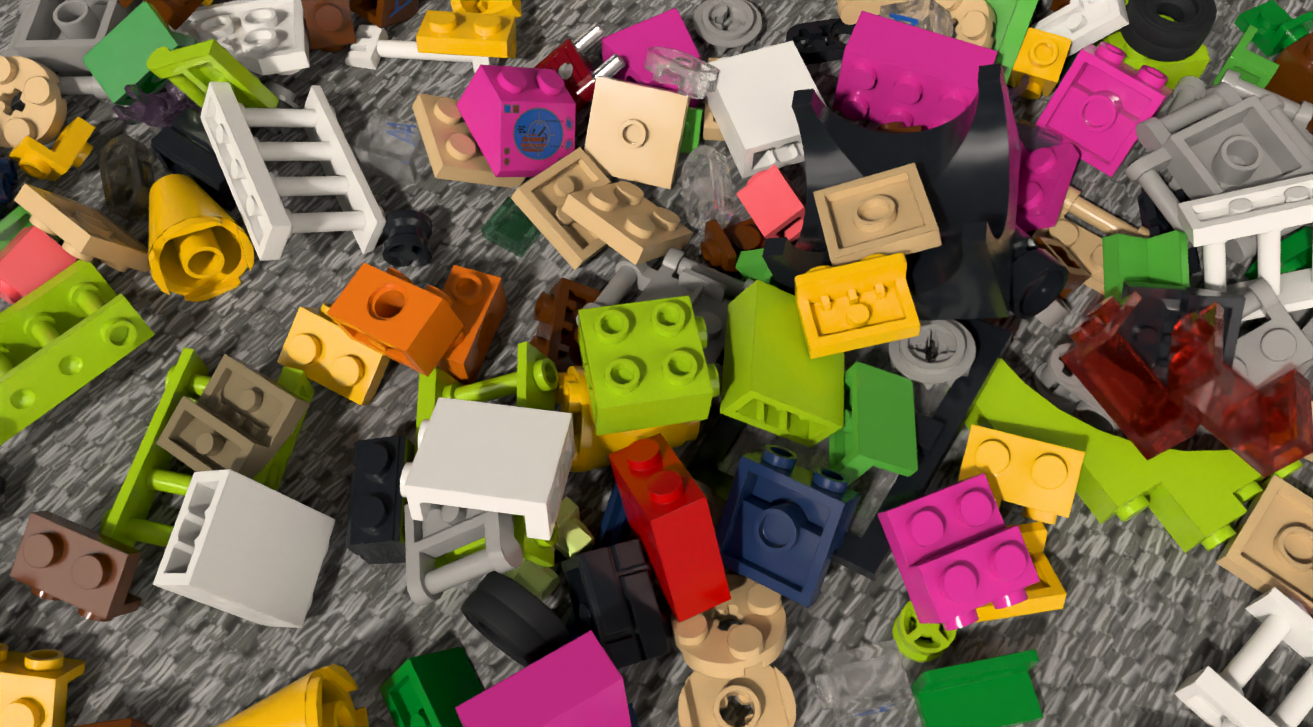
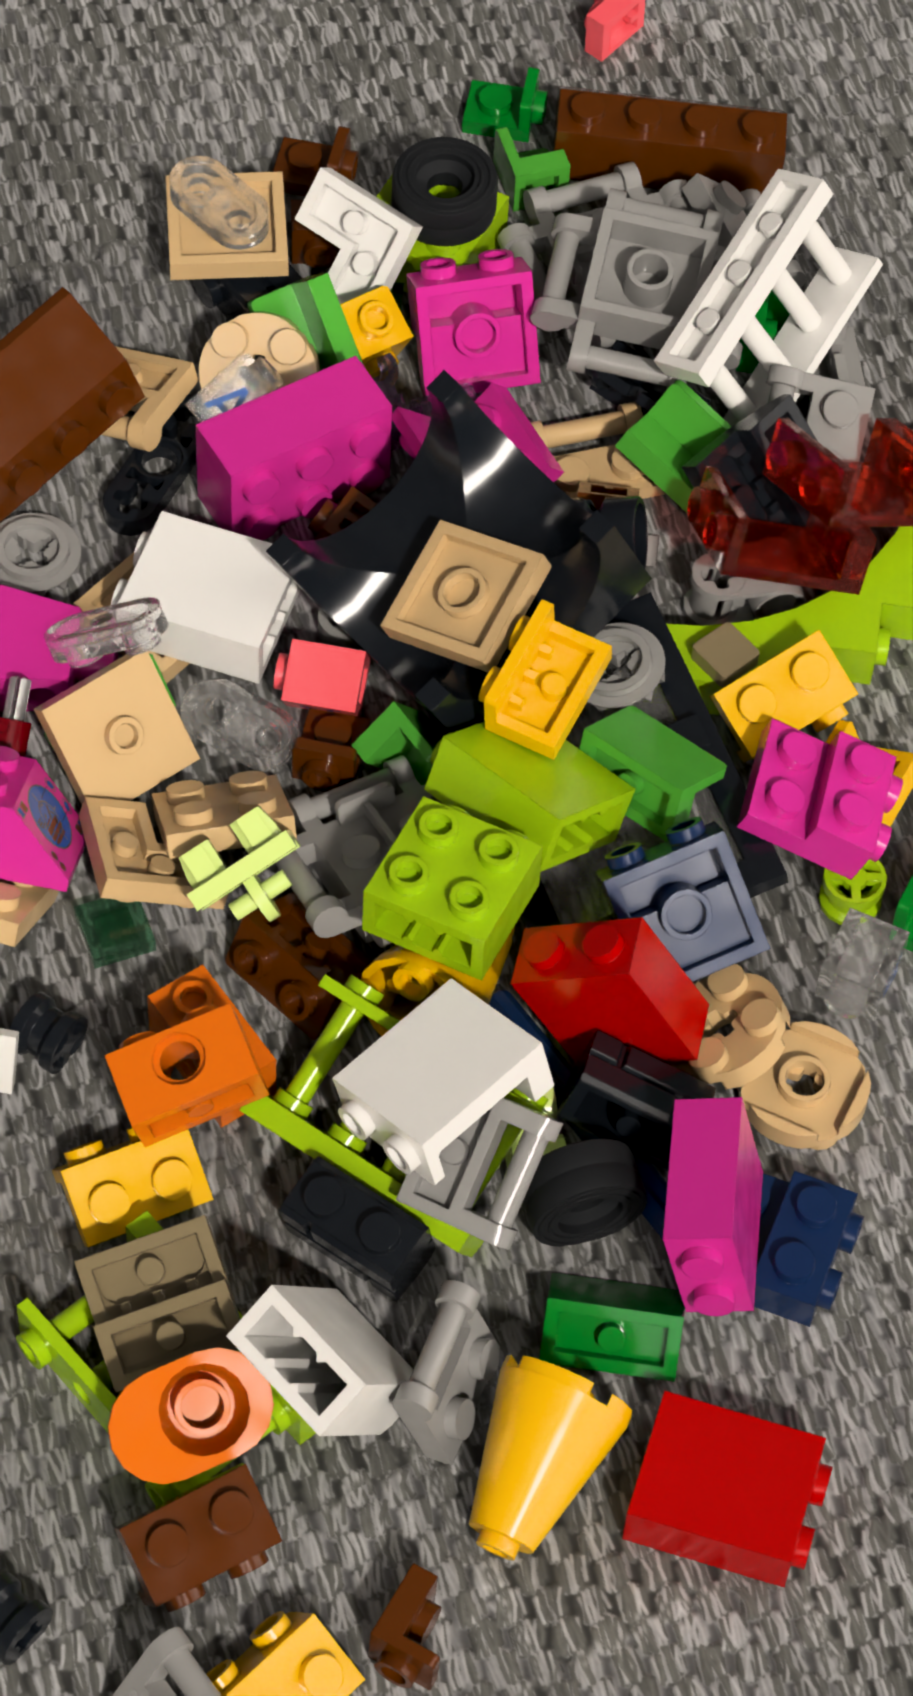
camera: 55 degrees left, 5 degrees down
(132, 491) = (190, 1415): none -> orange piece
(305, 634) = (449, 1374): none -> light grey plate
(579, 255) = (214, 880): none -> yellowish green hips
(1014, 411) = (725, 654): none -> dark tan piece

